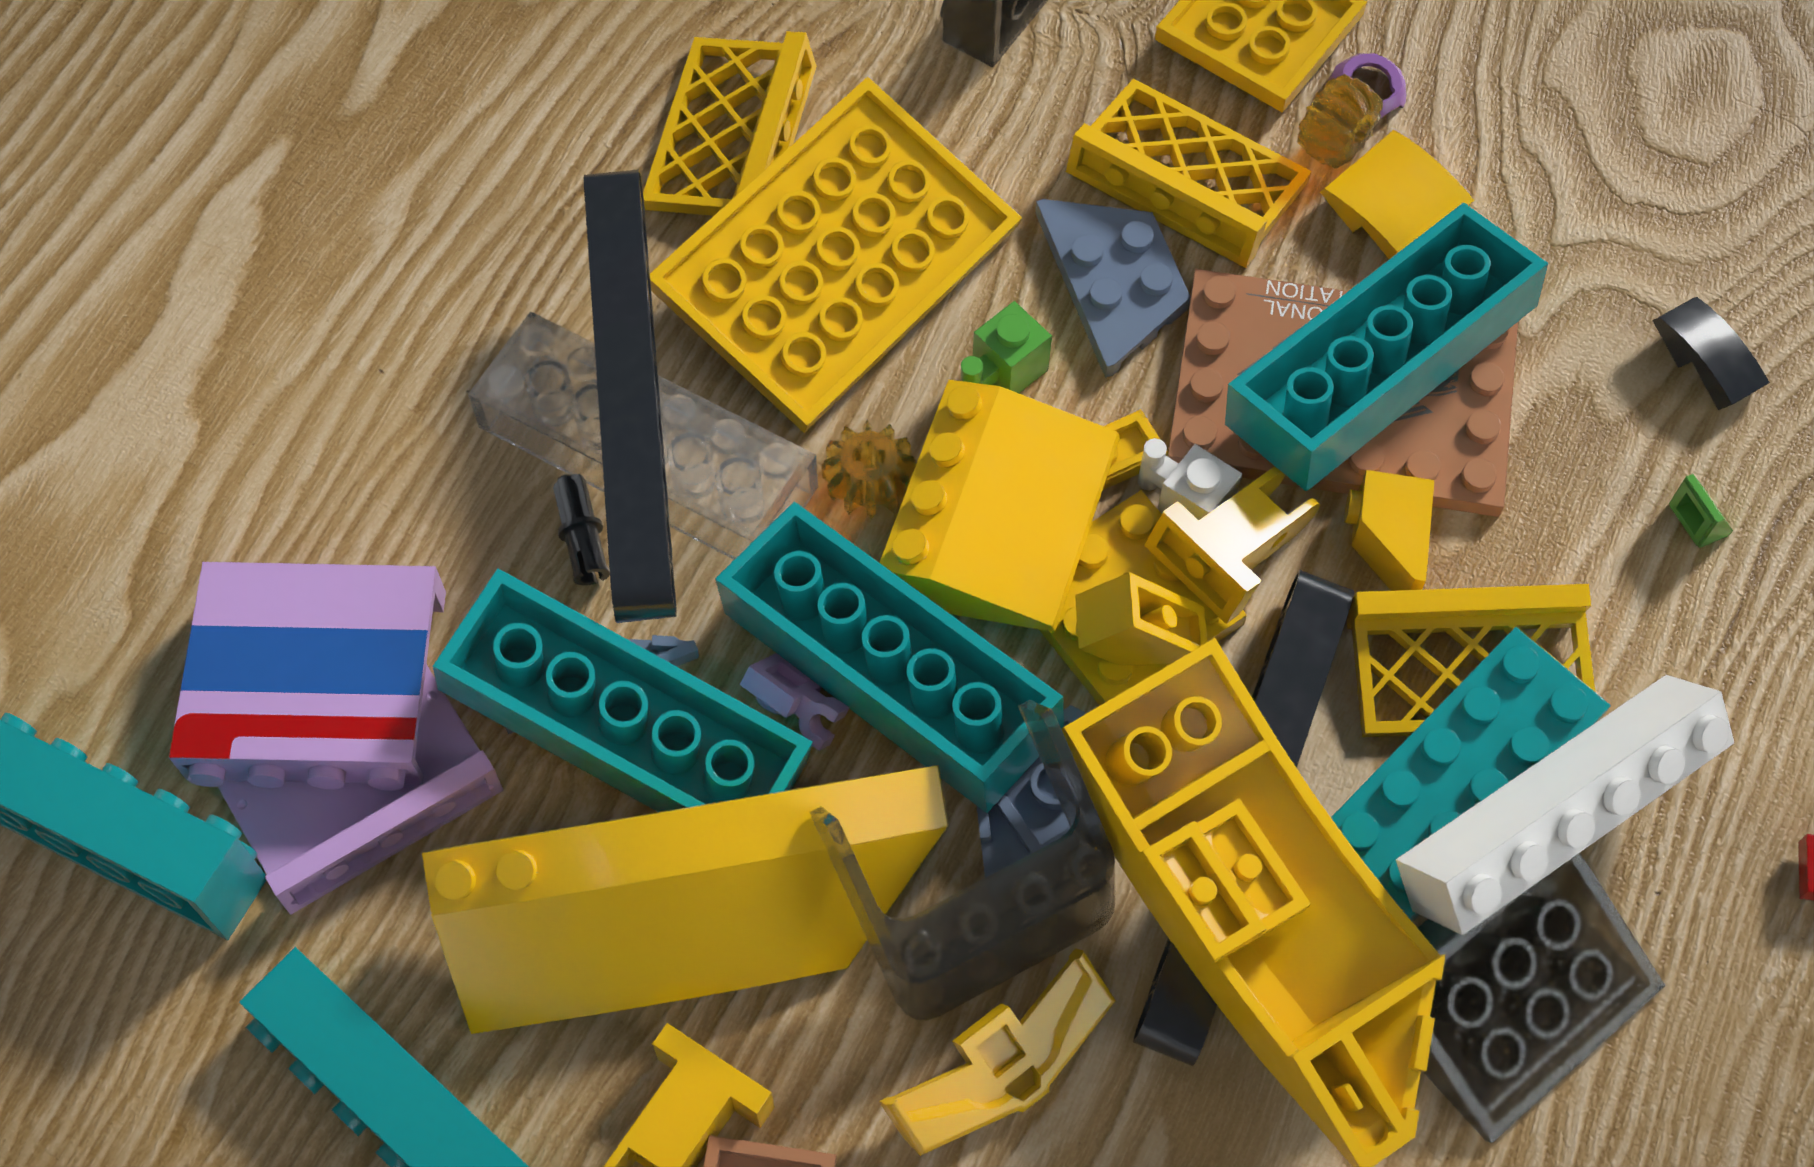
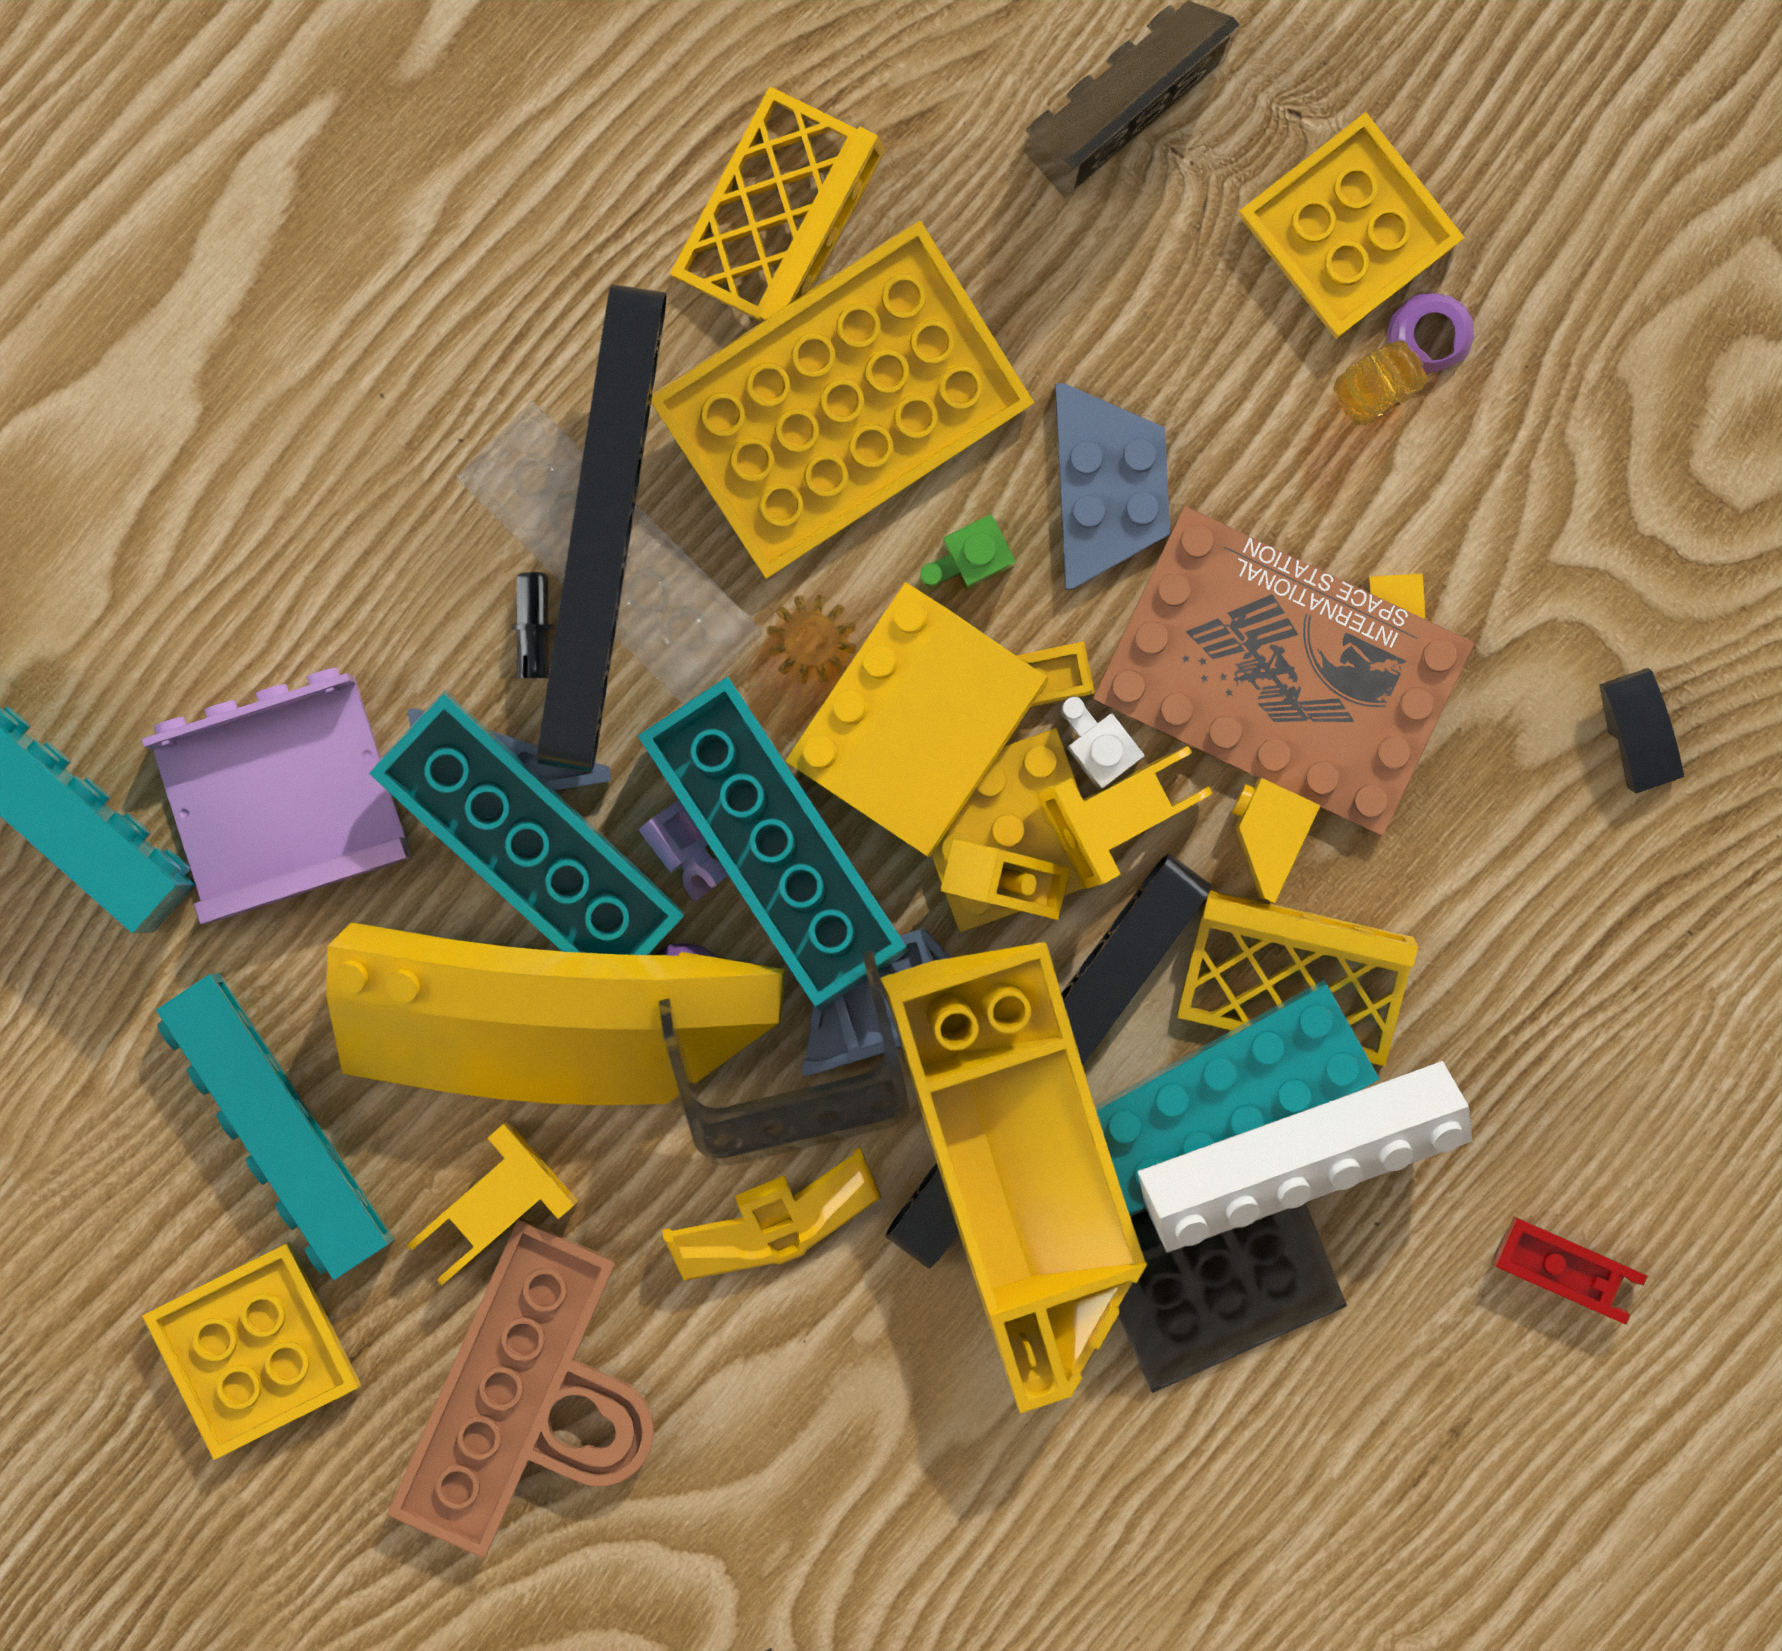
camera: 15 degrees right, 25 degrees up
(305, 674) = (260, 716): panel -> none
(1172, 193) = (1182, 409): yellow fence -> none
(1225, 880) = (988, 1151): yellow slope -> none
(1384, 345) = (1323, 662): teal brick -> none
(1395, 193) = (1411, 473): yellow slope -> none
(1699, 513) = (1565, 889): bright green slope -> none

